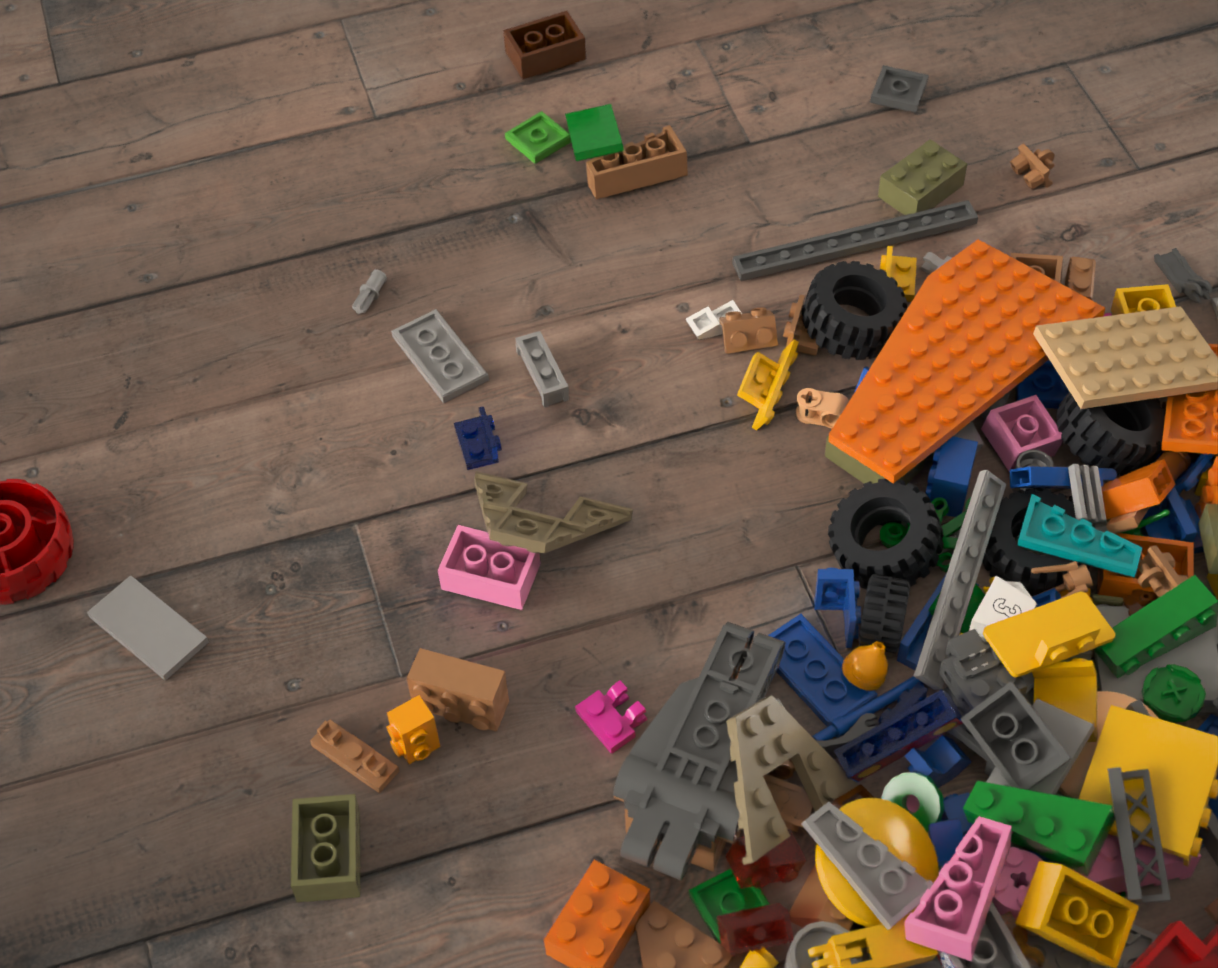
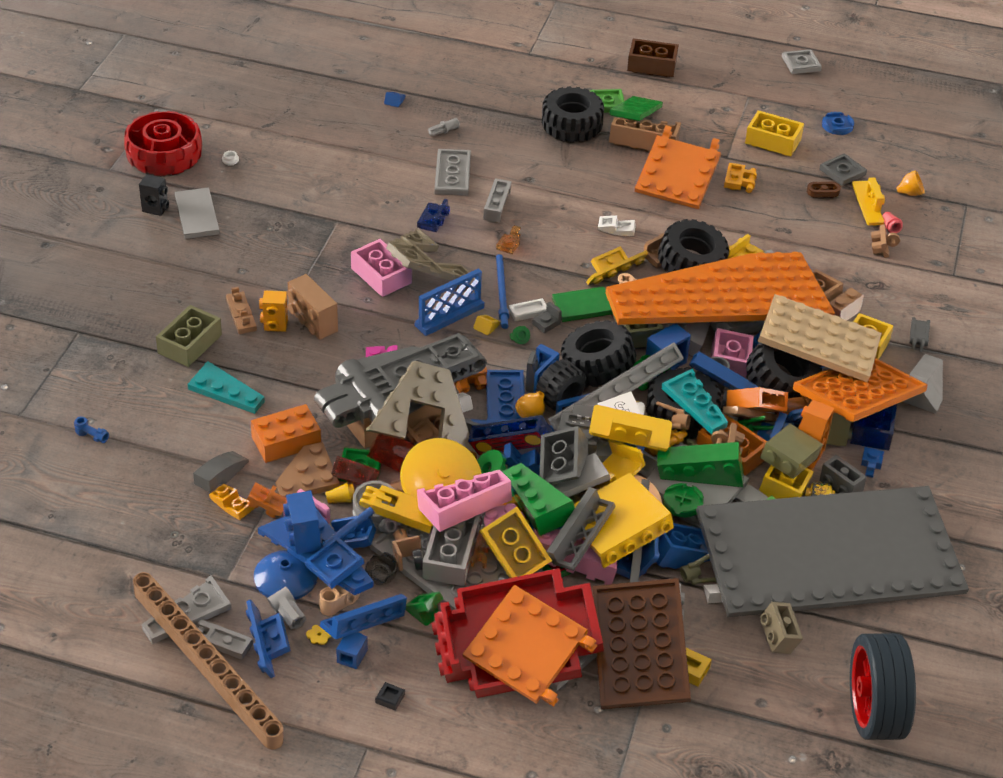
camera: 30 degrees right, 10 degrees down
(70, 639) = (153, 195): none -> black brick
(118, 508) = (230, 158): none -> white plate
(262, 282) = (394, 99): none -> blue slope
(437, 899) = (225, 388): none -> teal wing
(519, 162) = (572, 114): none -> black tyre
(607, 424) = (509, 242): none -> clear orange plate
(632, 575) = (454, 309): none -> blue fence
(690, 569) = (486, 324): none -> yellow slope
(697, 538) = (503, 311): none -> blue bar
(722, 514) = (527, 309): none -> white tile
(725, 198) = (678, 170): none -> orange plate
(748, 330) = (627, 237): medium nougat bracket -> none
(750, 561) = (520, 335): none -> green plate
(760, 513) = (549, 319): none -> dark grey bracket
(779, 464) = (582, 304): none -> green tile
(784, 80) = (774, 133): none -> yellow brick
(789, 166) = (734, 177): none -> light orange plate
(826, 33) = (838, 123): none -> blue tile
(826, 616) = (532, 367): none -> dark grey slope
(854, 240) = (739, 227): dark grey plate -> none
(878, 876) = (426, 460): light grey wing -> none
(903, 129) = (823, 189): none -> reddish brown plate
(922, 179) = (806, 216): olive brick -> none
(968, 114) = (870, 200): none -> yellow bracket
(994, 70) = (911, 184): none -> light orange helmet
(1017, 133) = (892, 223): none -> coral cone
(1091, 494) = (732, 373): light grey tile -> none

